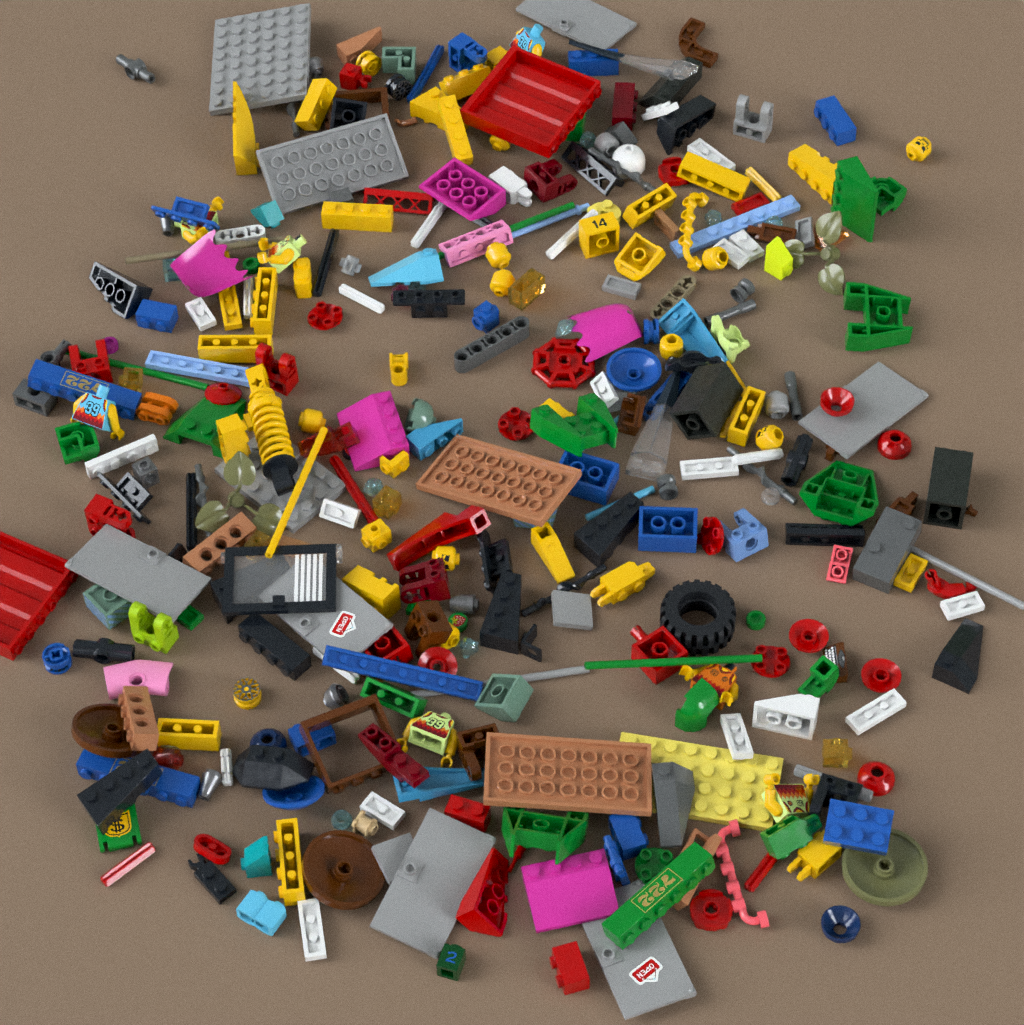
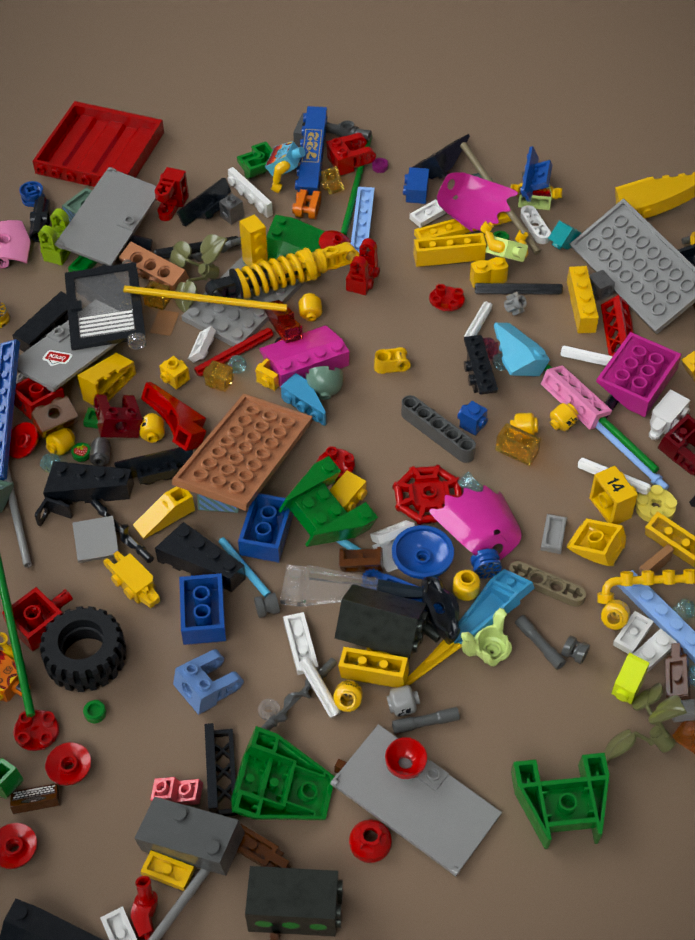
camera: 80 degrees right, 0 degrees up
(231, 347) = (385, 239): yellow brick -> none
(711, 535) = (195, 651): red dish -> none
(797, 460) = (324, 731): black piece -> none

